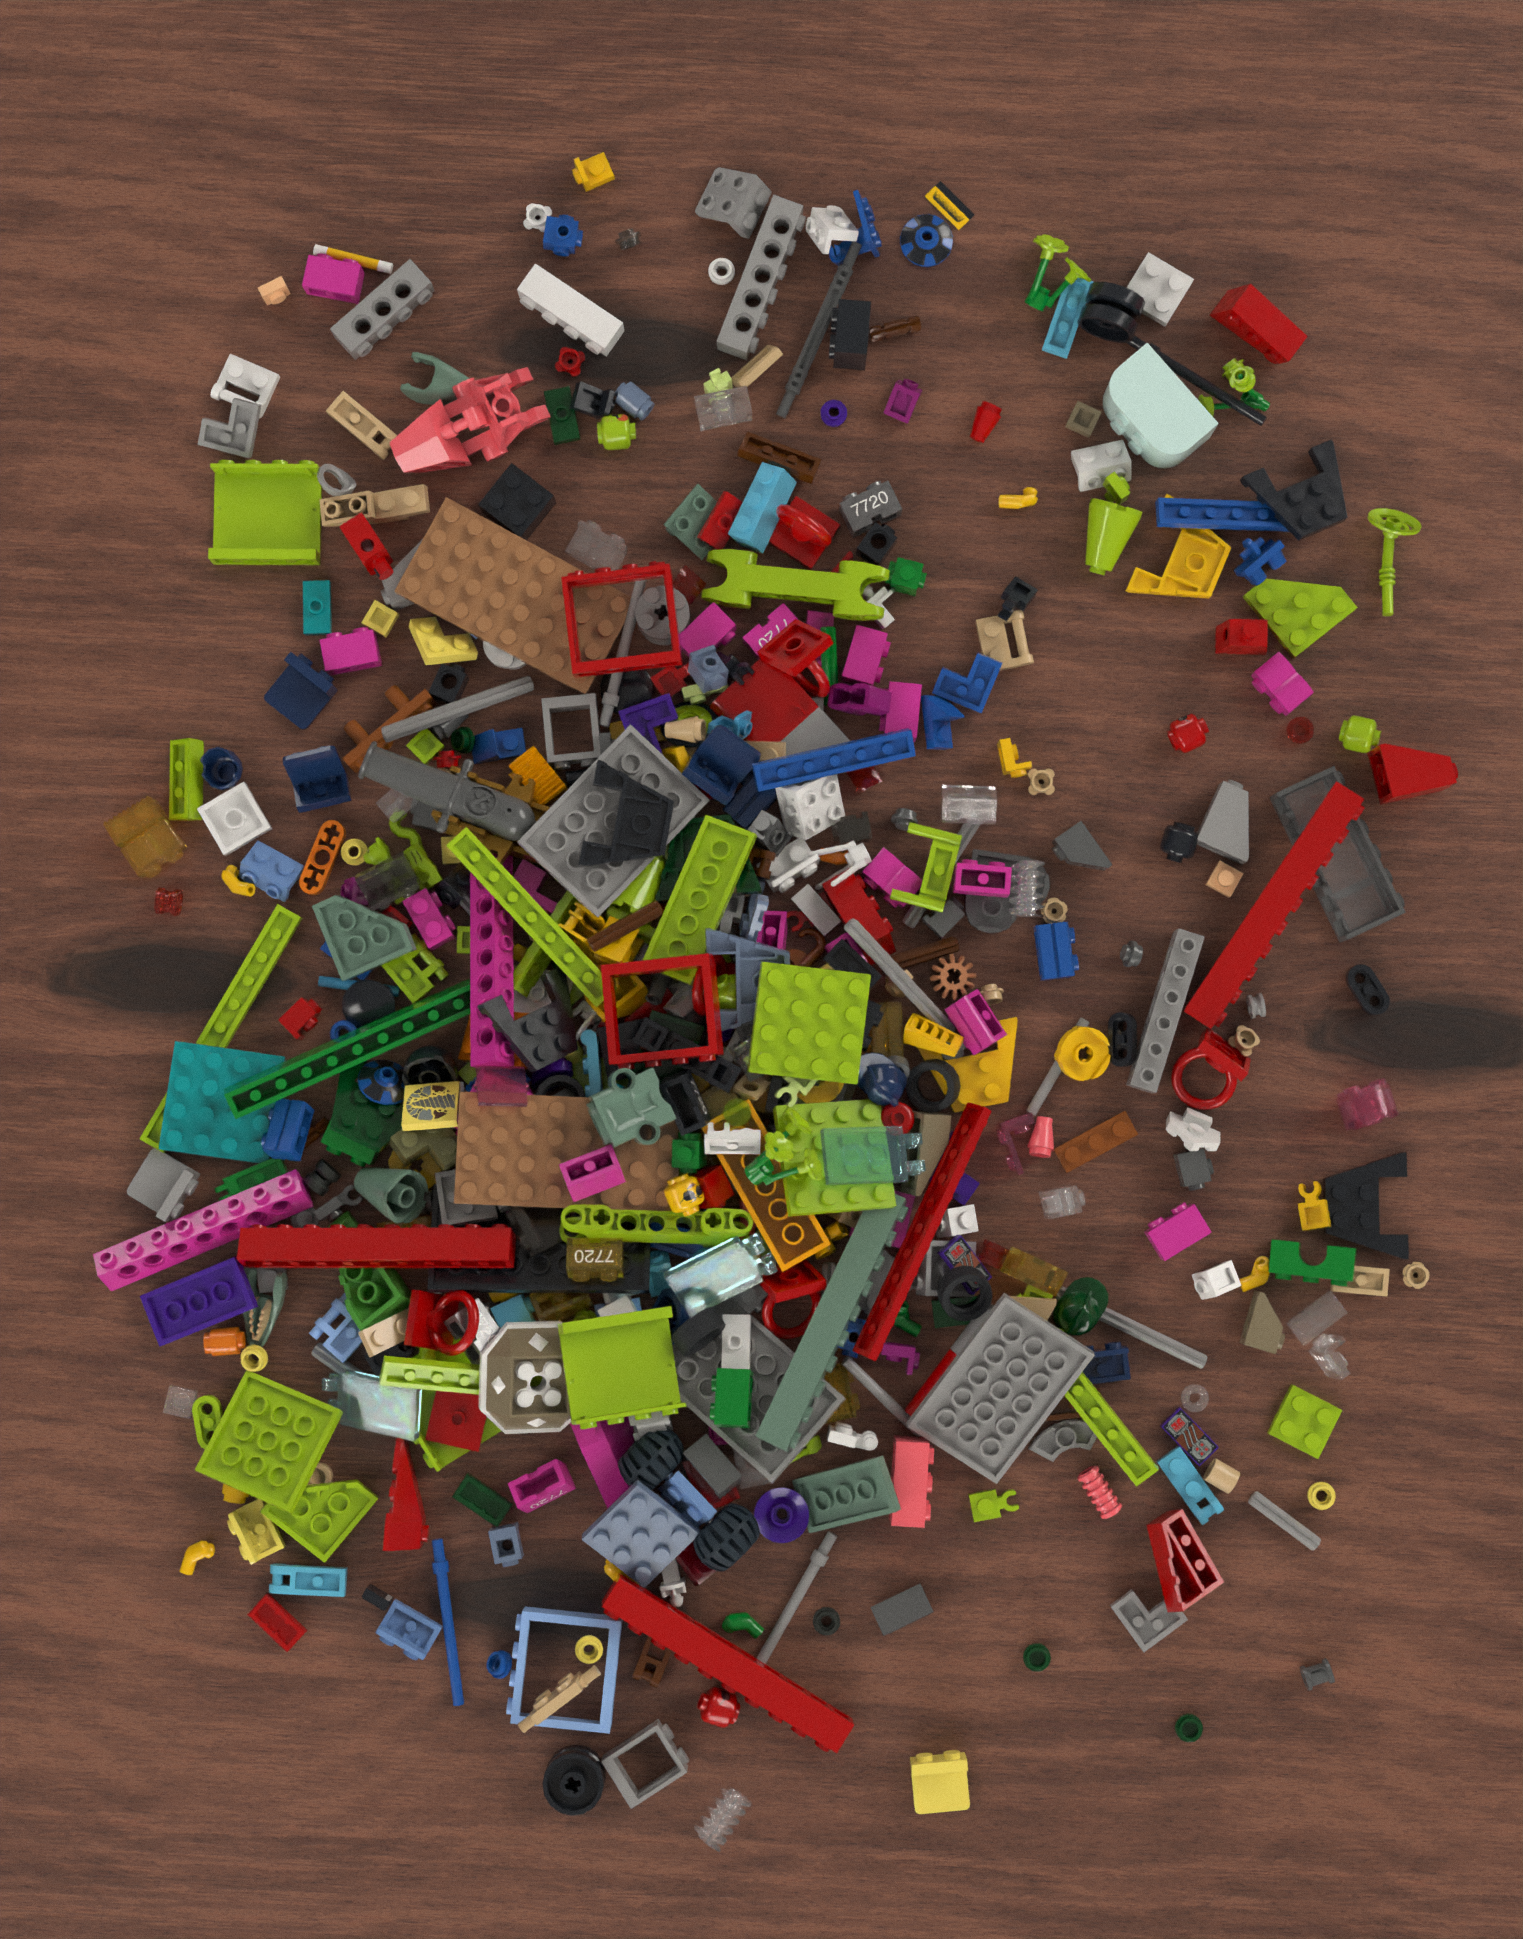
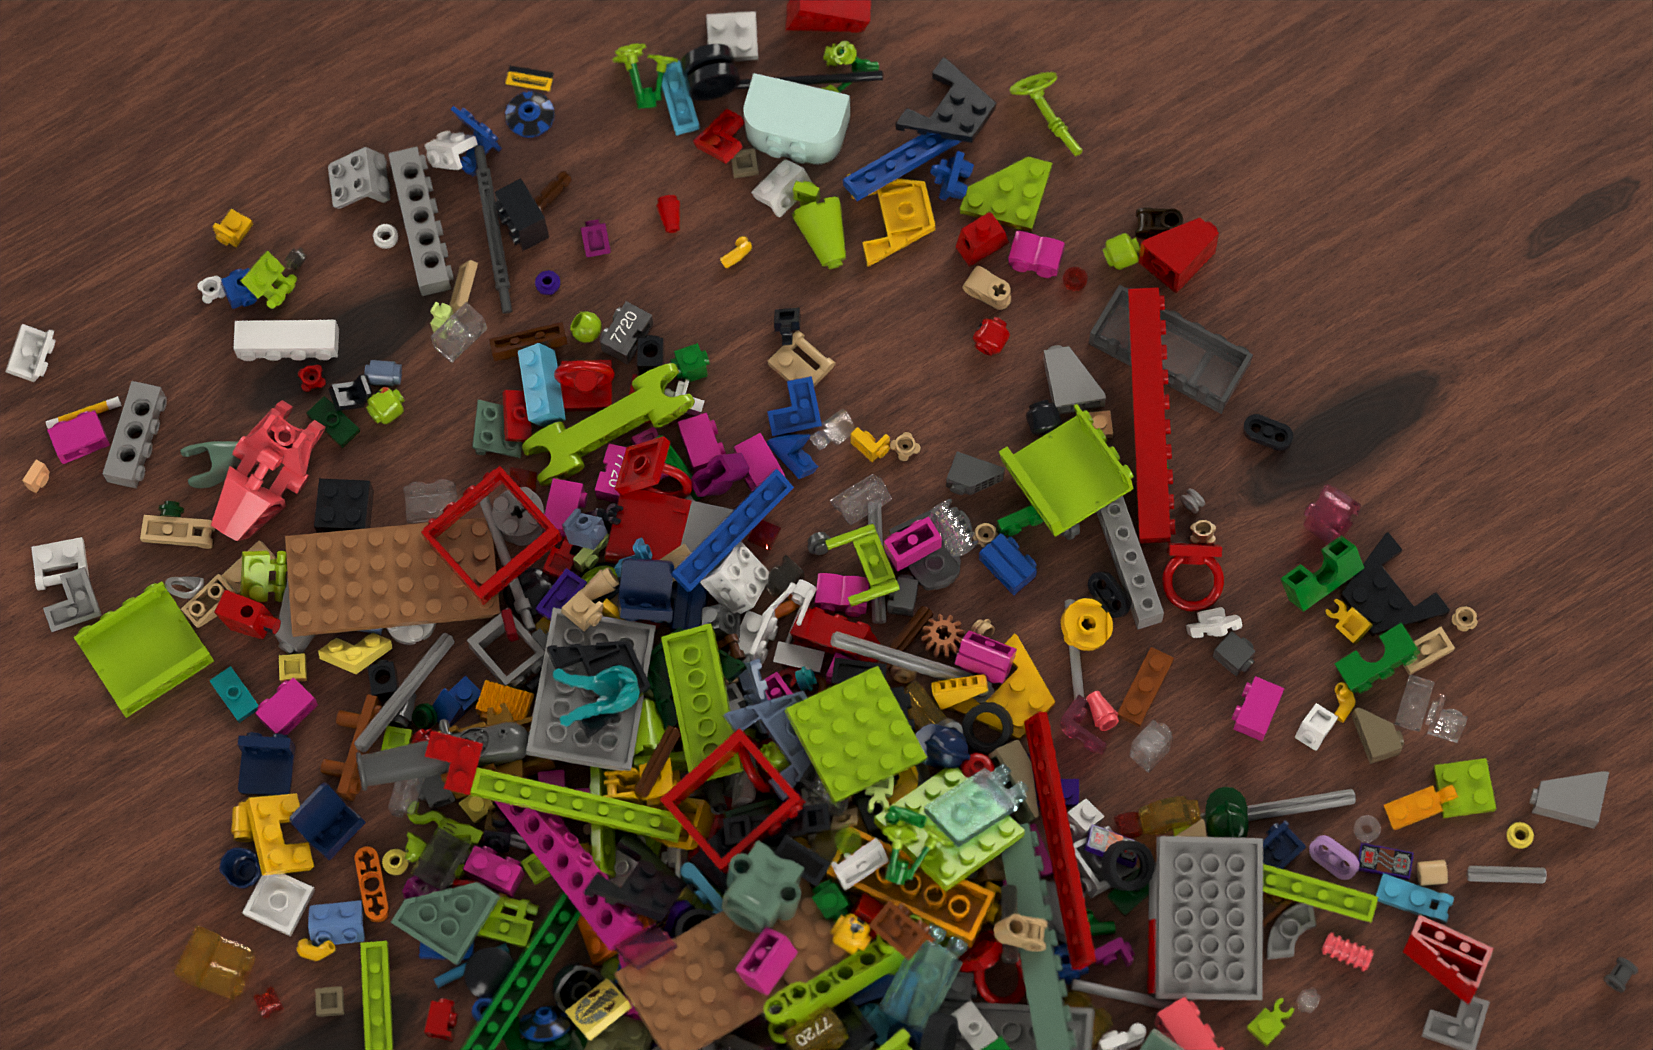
camera: 35 degrees left, 15 degrees down
(185, 779) = (216, 899): lime slope -> none
(220, 936) = (329, 1001): none -> dark tan plate
(251, 729) = (241, 824): none -> yellow brick
(254, 776) = (265, 819): none -> yellow plate
(341, 170) = (30, 353): none -> white bracket
(369, 402) = (171, 509): none -> dark green plate
(400, 513) = (255, 575): none -> lime plate
(459, 807) = (462, 756): none -> red plate
(584, 712) = (509, 625): none -> dark red tile
(586, 237) = (263, 274): none -> lime plate
(629, 841) = (615, 686): none -> teal hair
(653, 746) = (583, 611): none -> tan bracket
(726, 1224) = (900, 929): none -> dark orange bracket
(798, 1133) = (908, 816): none -> green arm
(807, 934) = (805, 678): none -> teal plate
(825, 1278) = (1009, 907): none -> clear smoke axle
(831, 1298) = (1026, 933): none -> tan piece
(838, 479) = (586, 327): none -> lime piece
(991, 725) = (836, 429): none -> clear plate
(1036, 1510) = (1308, 1000): none -> clear plate
(1075, 377) = (718, 138): none -> red plate
(1106, 922) = (1015, 522): none -> green plate
(1146, 1402) = (1333, 858): none -> lavender plate
(1164, 909) = (1069, 472): none -> lime panel
(1214, 682) = (984, 286): none -> tan piece
(1252, 1410) = (1418, 806): none -> light orange plate
(1340, 1154) = (1339, 565): none -> green arch
(1390, 1498) = (1571, 798): none -> light grey slope
(1409, 729) = (1156, 221): none -> dark brown piece

